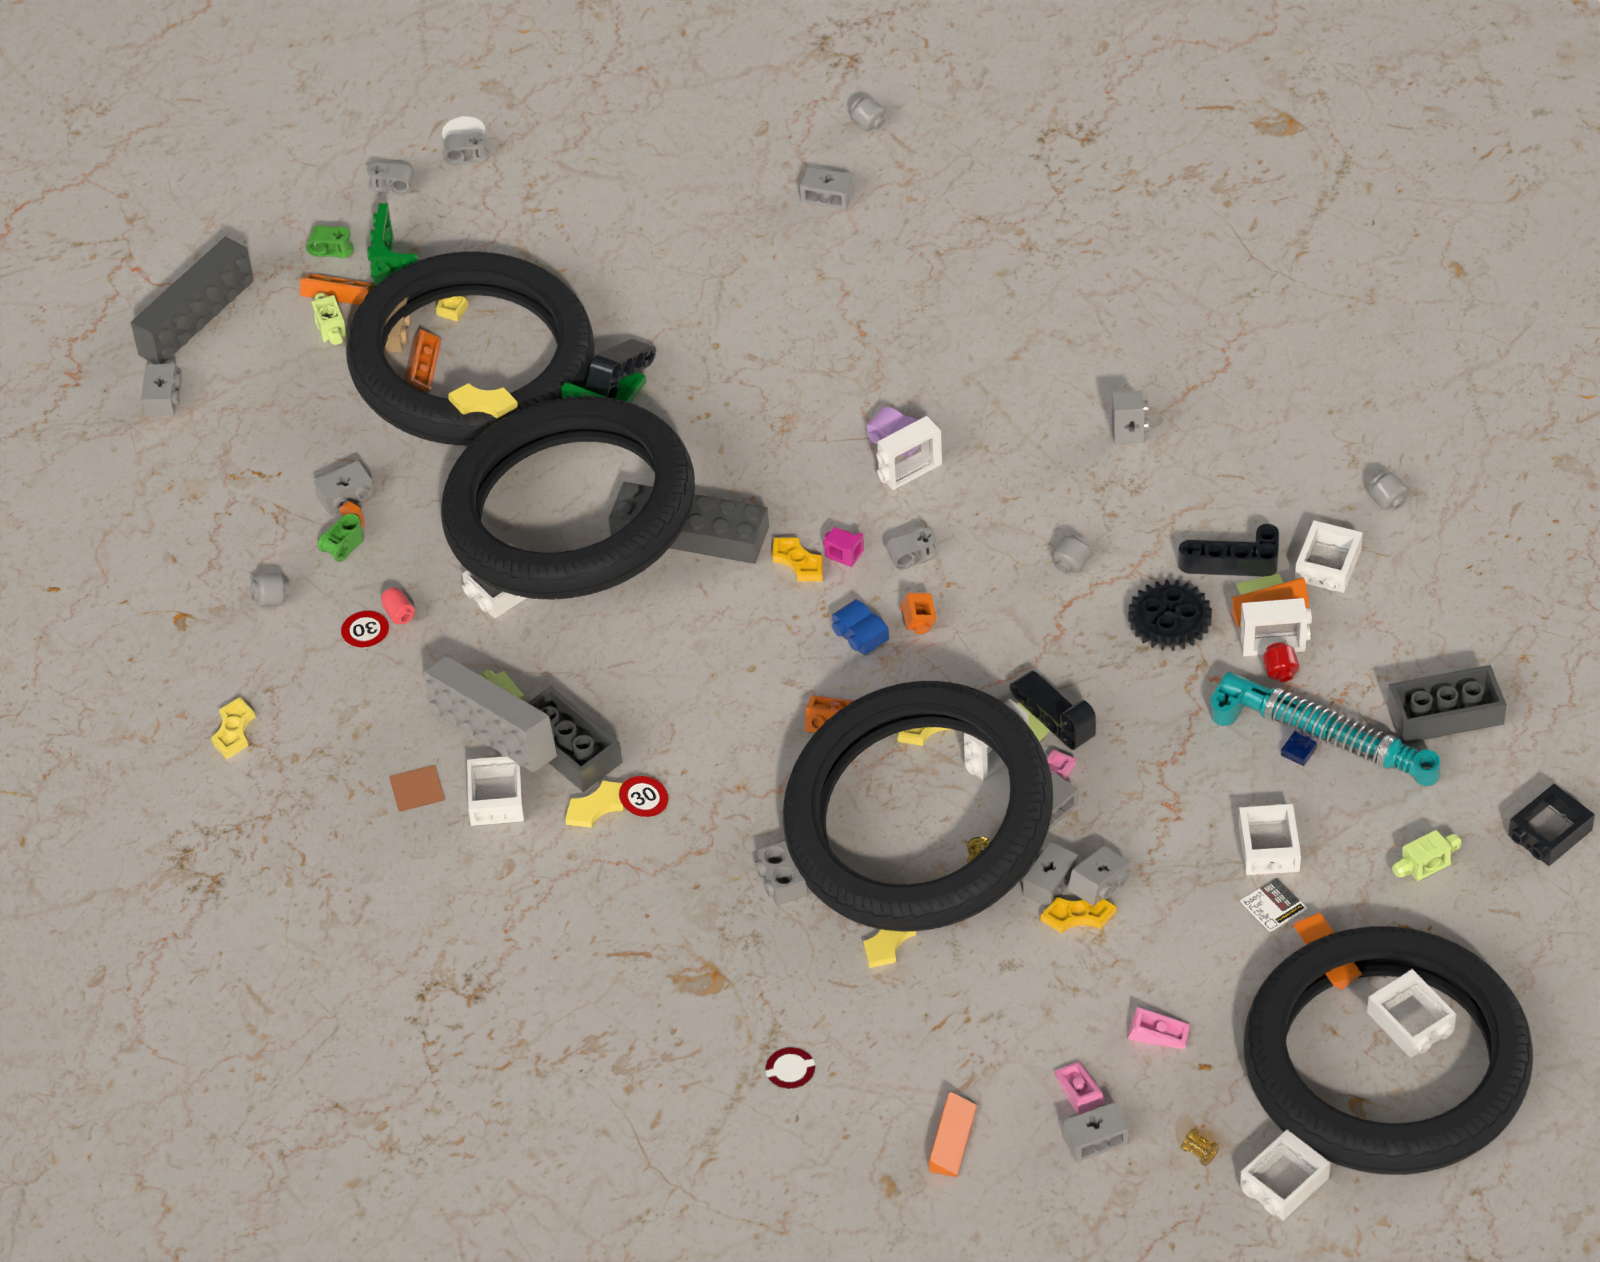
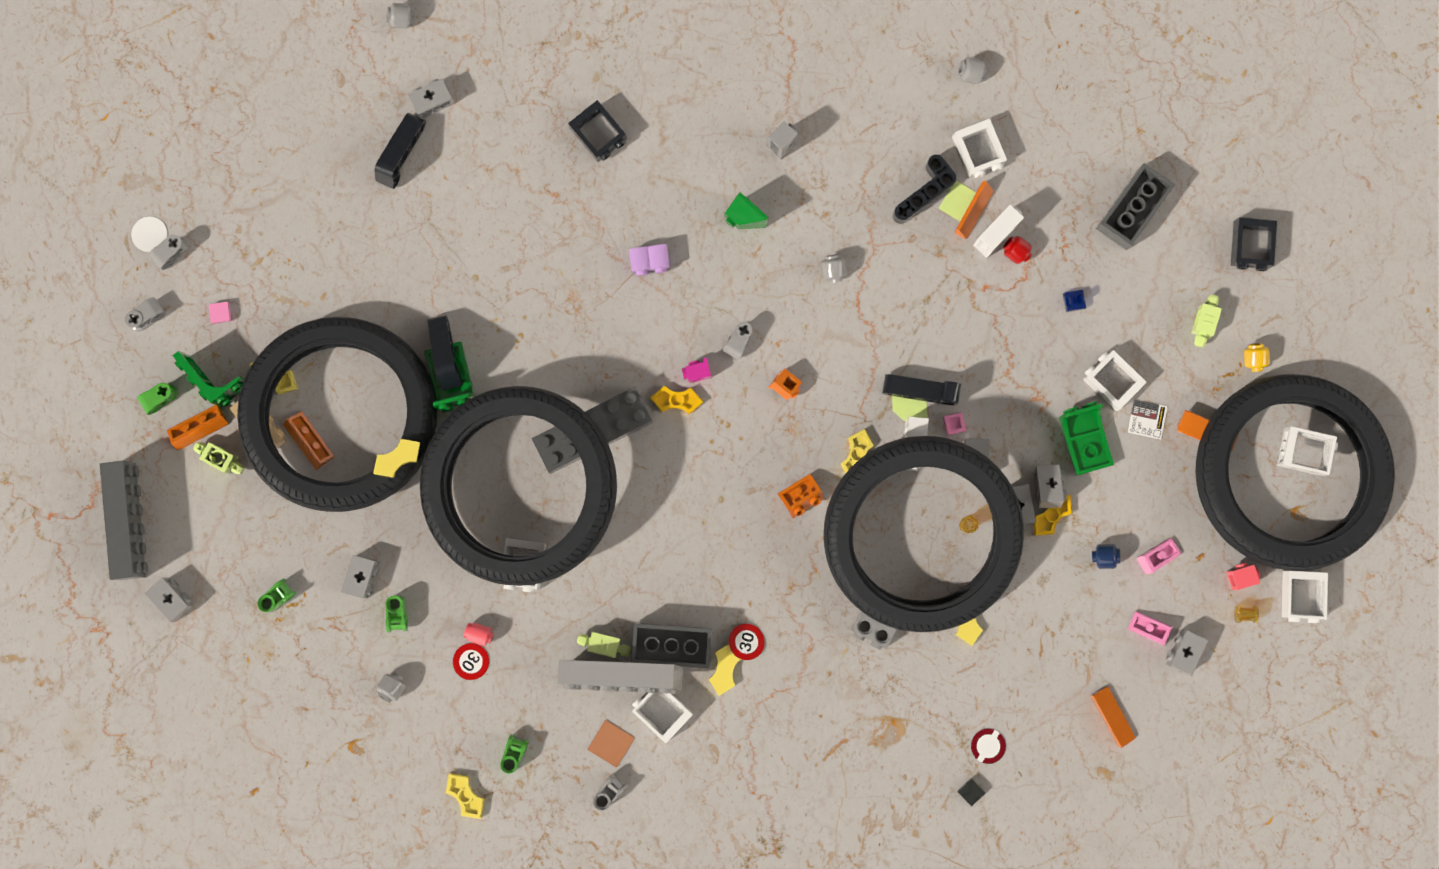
camera: 45 degrees left, 35 degrees up
(250, 452) = (279, 595): none -> bright green piece
(315, 723) = (513, 752): none -> bright green piece
(351, 508) = (383, 591): orange tile -> none
(364, 819) = (609, 791): none -> light grey piece
(456, 221) = (220, 312): none -> bright pink tile
(726, 1091) = (971, 792): none -> pearl dark grey tile
(751, 199) = (397, 150): none -> black beam
(860, 627) = (760, 422): blue brick -> none
(909, 453) = (678, 274): white window -> none
(956, 306) = (598, 131): none -> black window
(1026, 452) = (745, 214): none -> green slope
(1097, 983) = (1106, 556): none -> dark blue head
(1170, 615) = (911, 261): black gear -> none
(1188, 859) = (1086, 438): none -> green bracket
(1232, 1109) = (1243, 576): none -> coral brick
(1277, 705) = (1077, 277): teal piece -> none
(1452, 922) = (1256, 357): none -> yellow head

